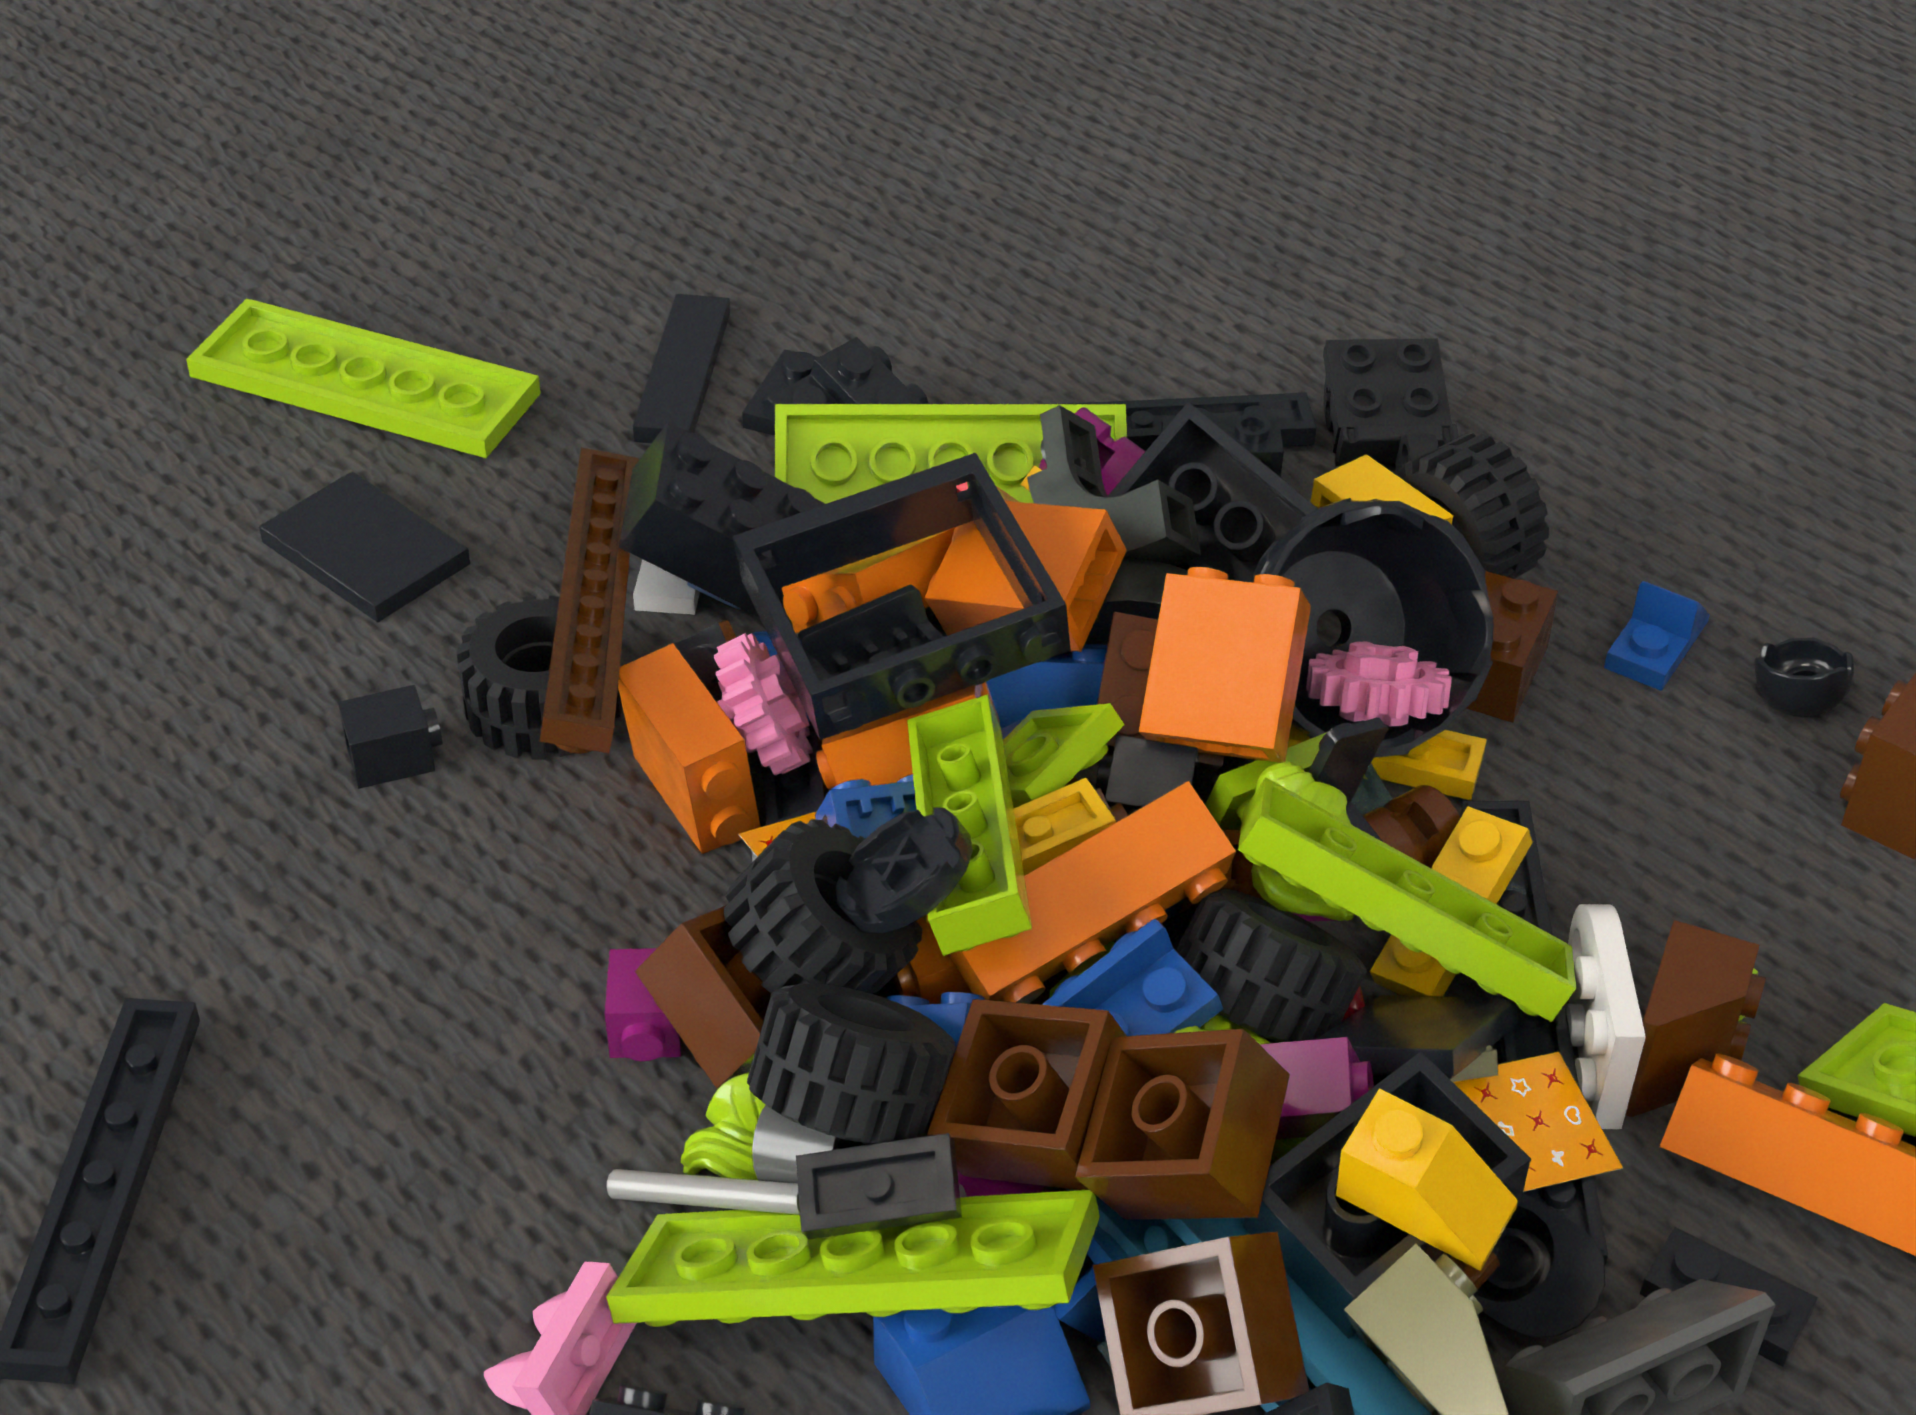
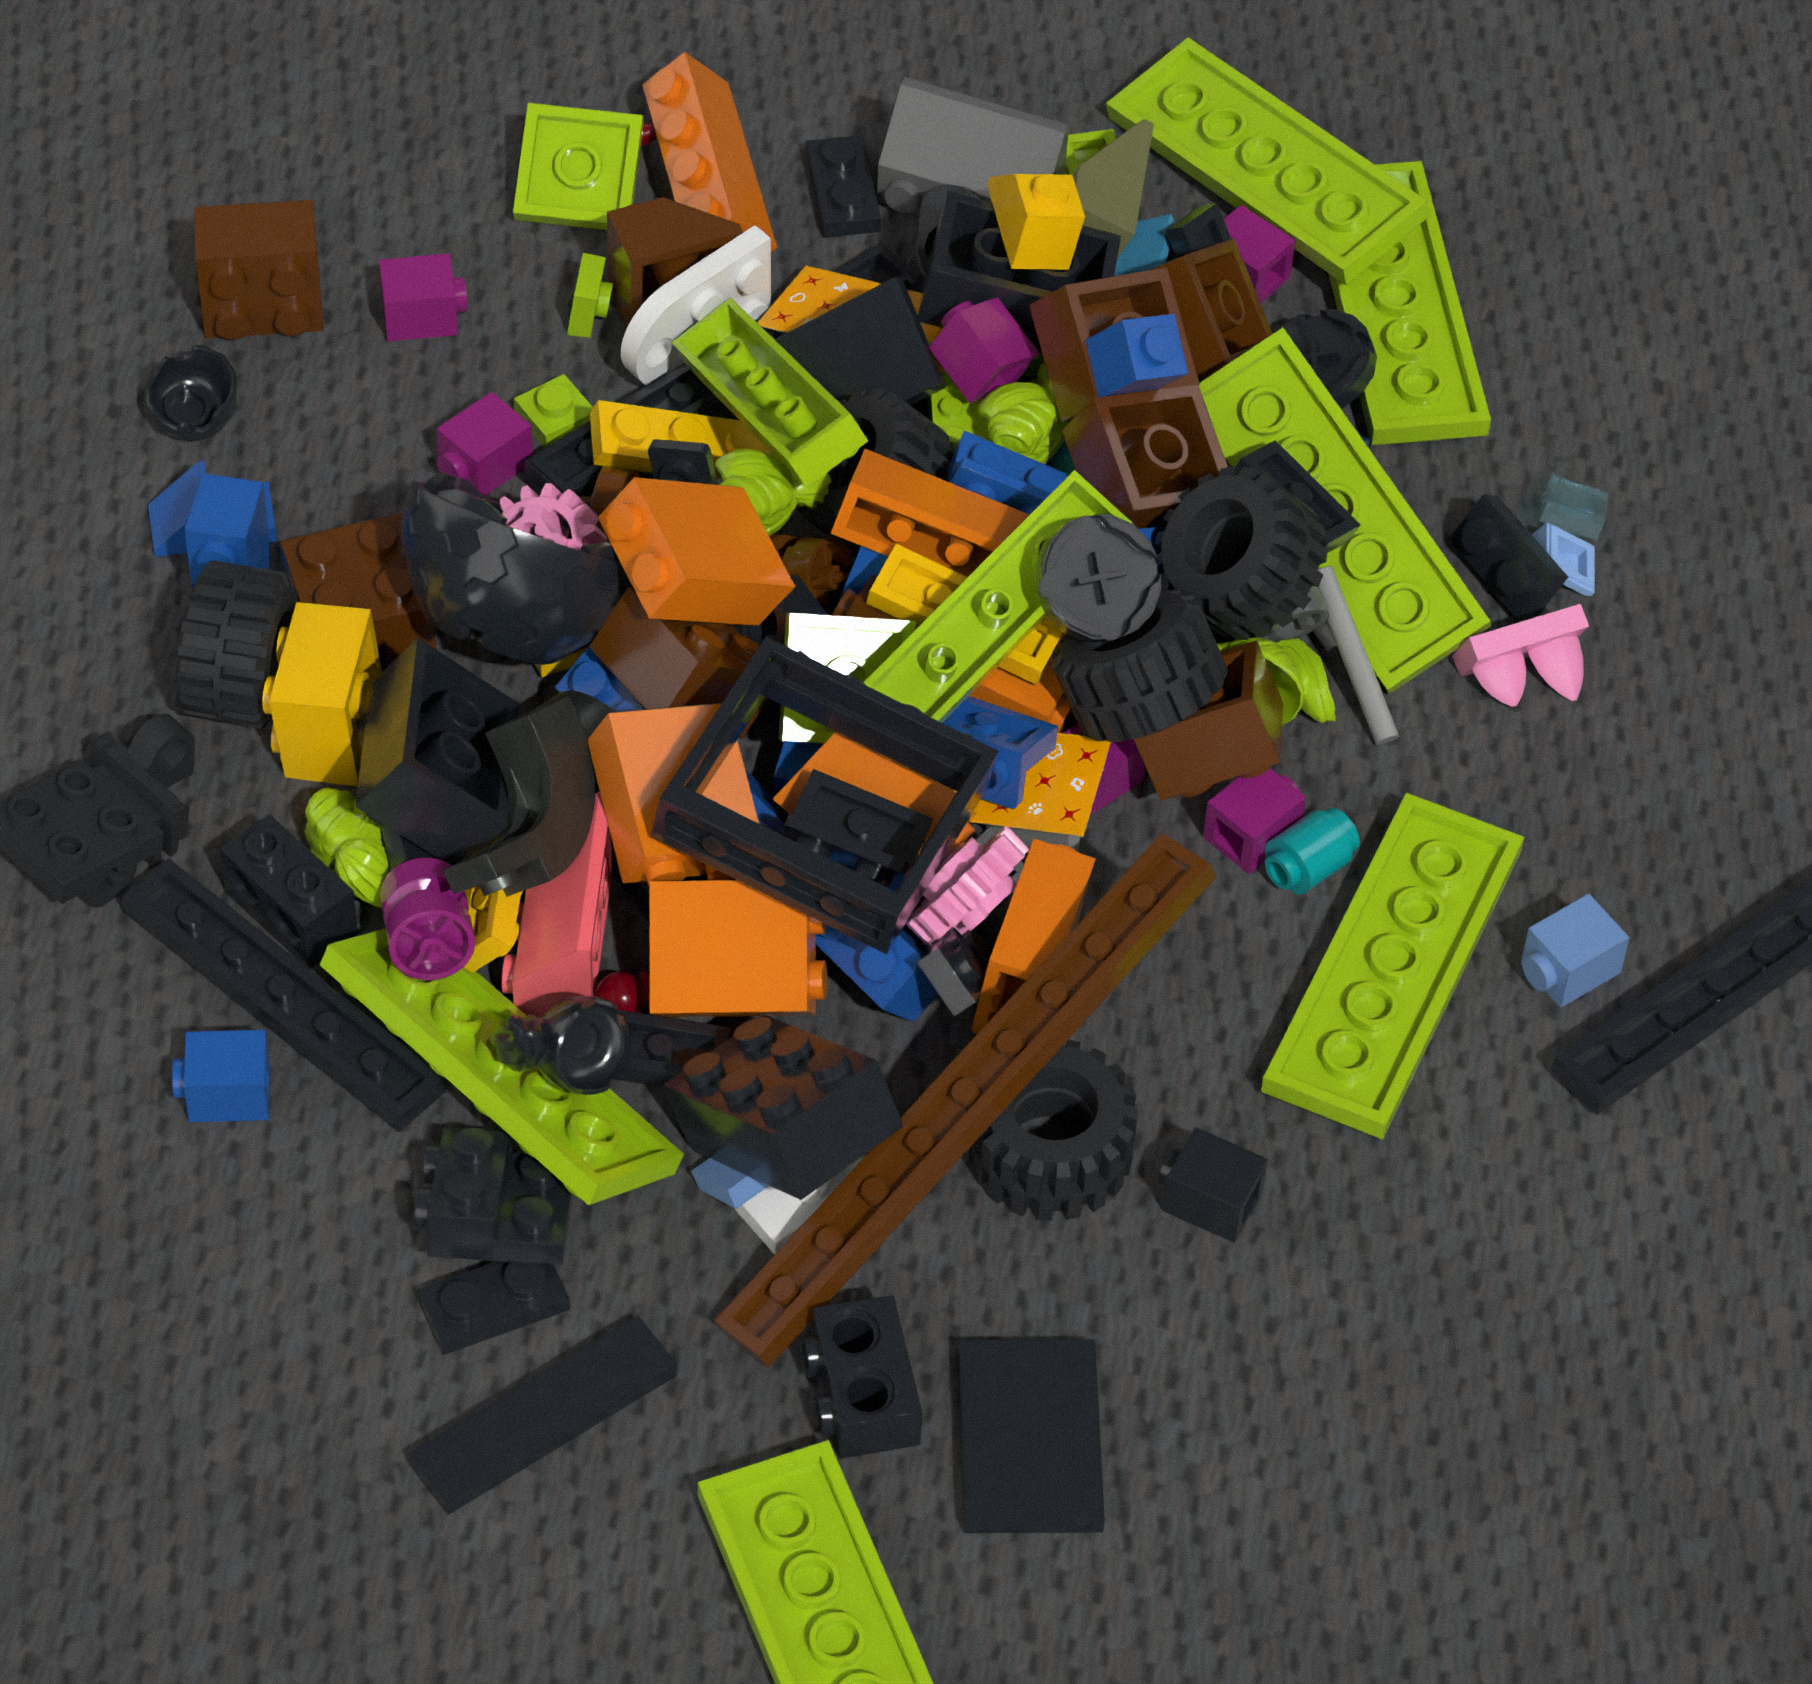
camera: 135 degrees left, 10 degrees up
(257, 1104) = (1574, 951): none -> medium blue brick
(414, 1000) = (1393, 966): none -> lime plate
(501, 486) = (874, 1377): none -> black brick
(570, 1018) = (1311, 850): none -> teal brick
(907, 438) = (572, 1044): none -> black hair
(1098, 363) = (224, 1076): none -> blue brick
(1111, 1050) = (1137, 355): none -> blue brick
(1582, 807) = (484, 444): none -> magenta brick
(1593, 884) = (553, 409): none -> lime plate
(1597, 574) = (227, 524): none -> blue brick
(1814, 871) = (421, 297): none -> magenta brick

